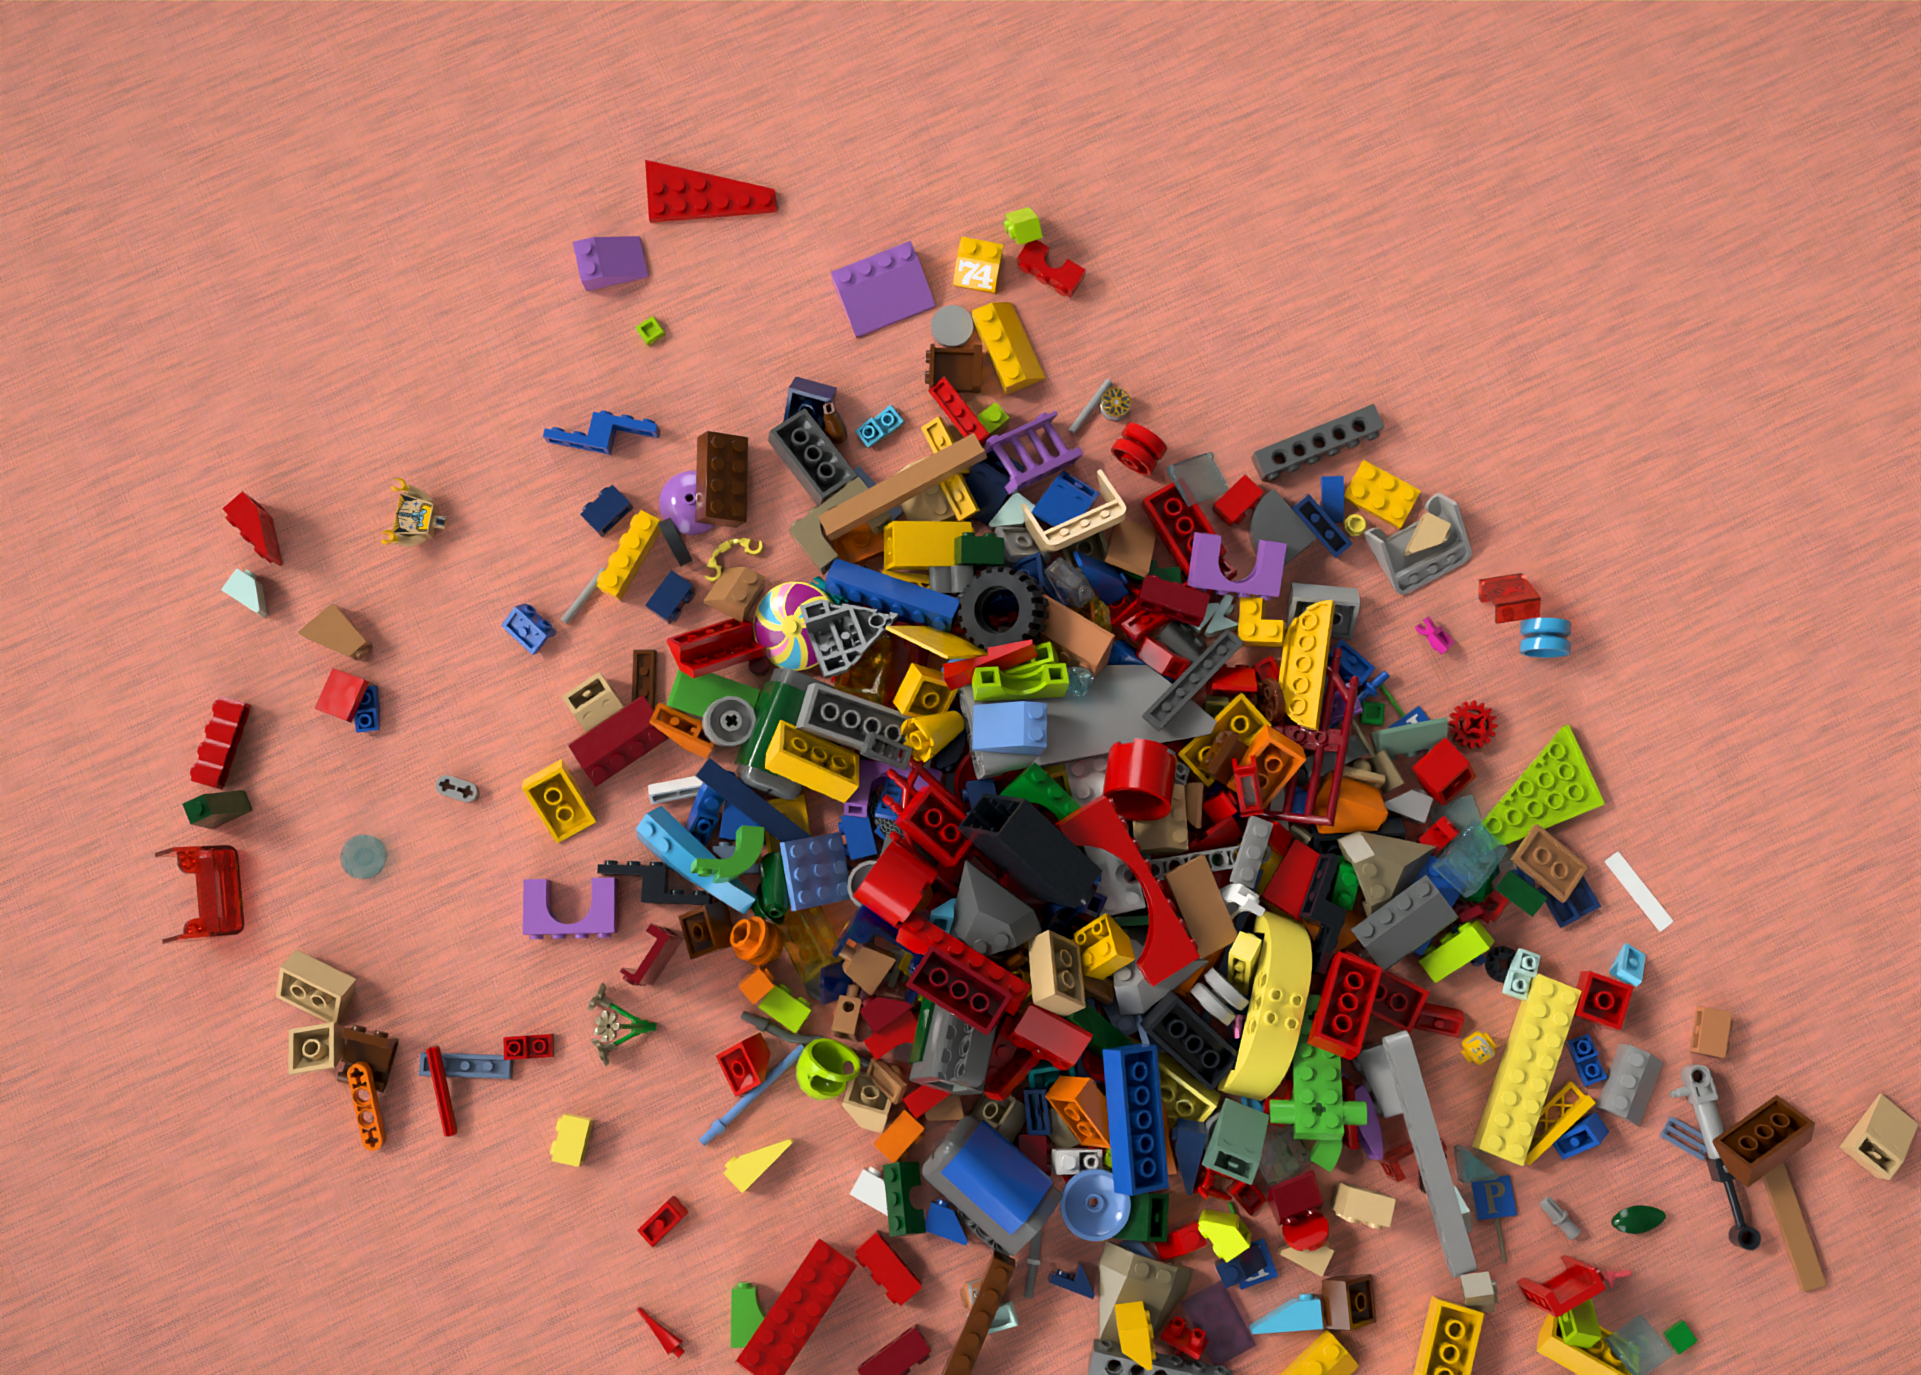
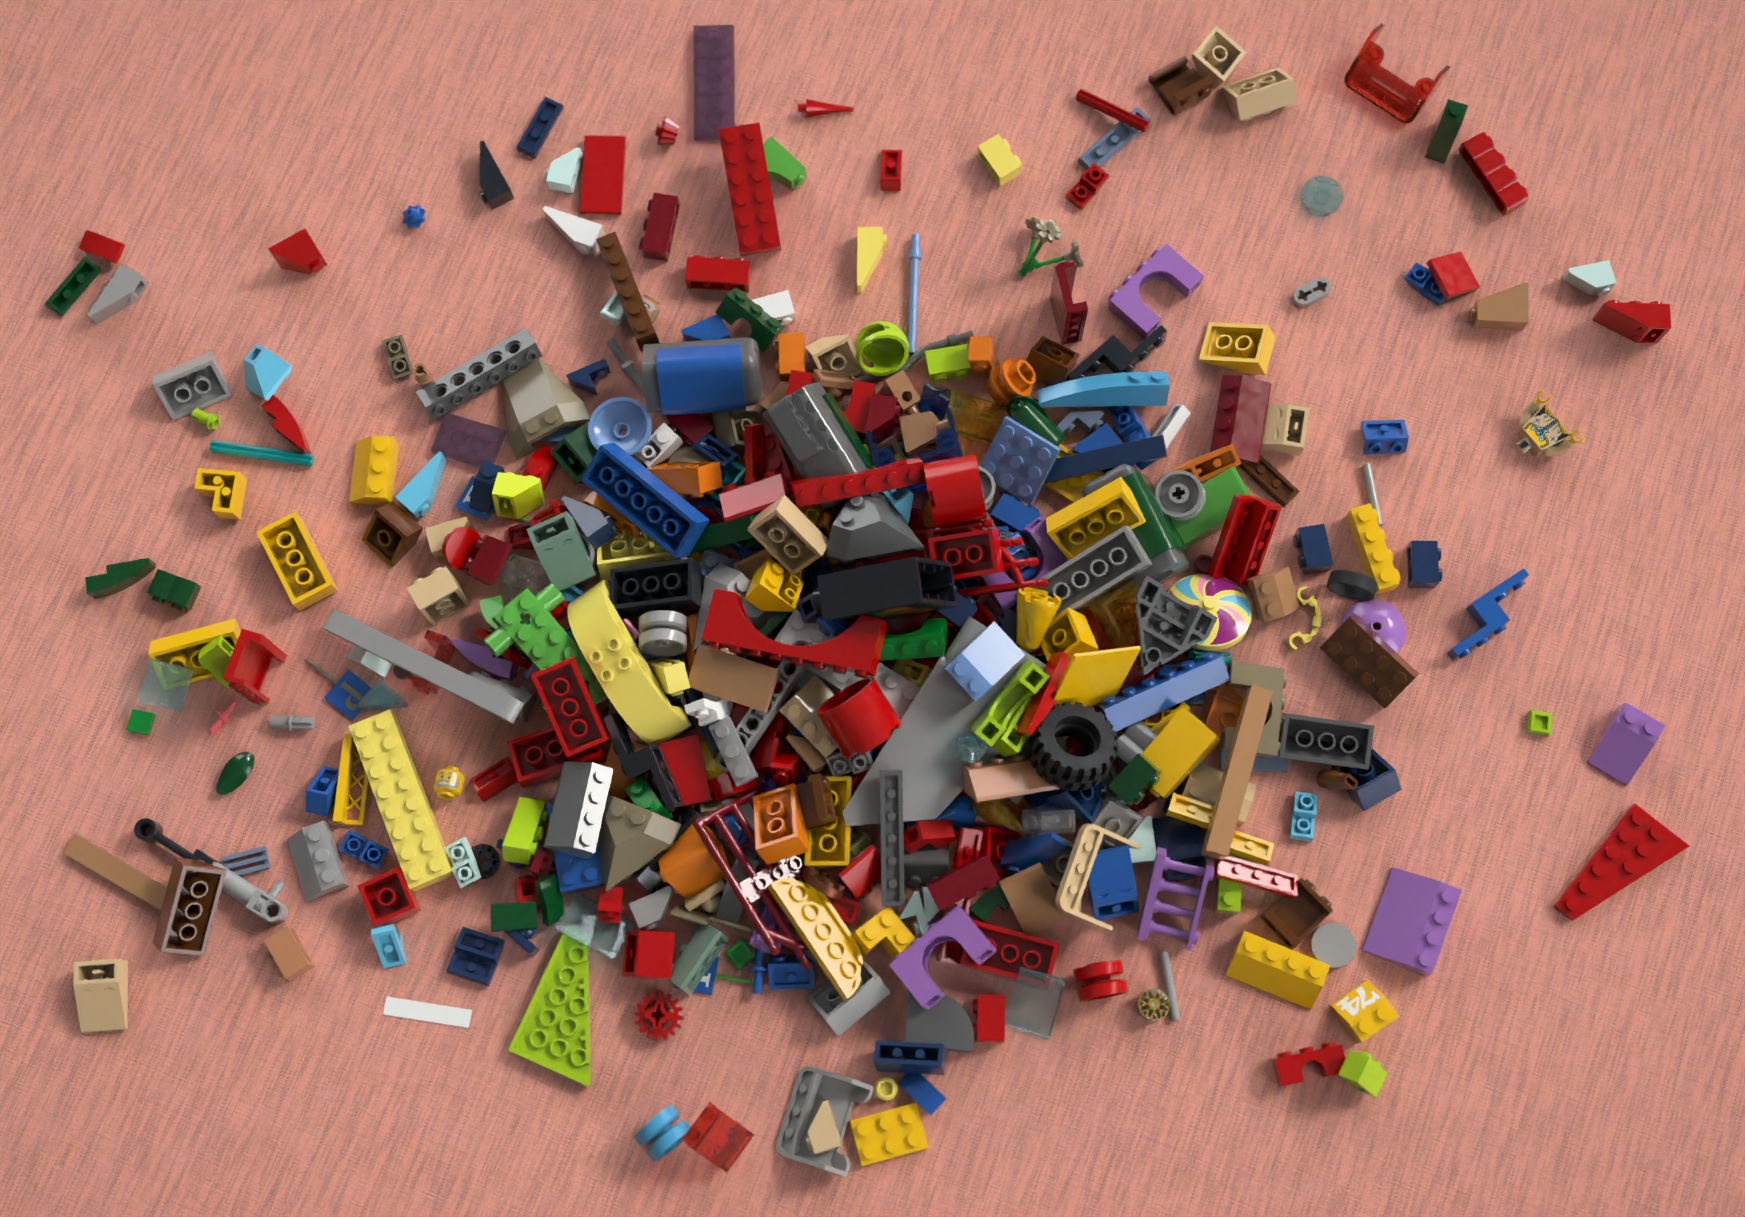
camera: 140 degrees right, 5 degrees down
(370, 1105) = (1164, 69): orange beam -> none
(745, 1063) = (938, 306): red slope -> none
(748, 848) = (1075, 422): bright green arch -> none
(868, 743) = (1048, 563): dark grey slope -> none
(960, 990) = (840, 451): dark red slope -> none
(1136, 1333) = (518, 374): yellow slope -> none
(1185, 1340) = (482, 408): red hips -> none
(1248, 788) = (777, 791): red window -> none
(1366, 418) = (1002, 1072): dark grey brick -> none
(1437, 637) = (743, 1059): dark pink plate -> none
(1470, 858) = (572, 907): clear light blue slope -> none
(1479, 1291) = (308, 616): slope -> none
(1549, 863) = (511, 961): medium nougat tile -> none

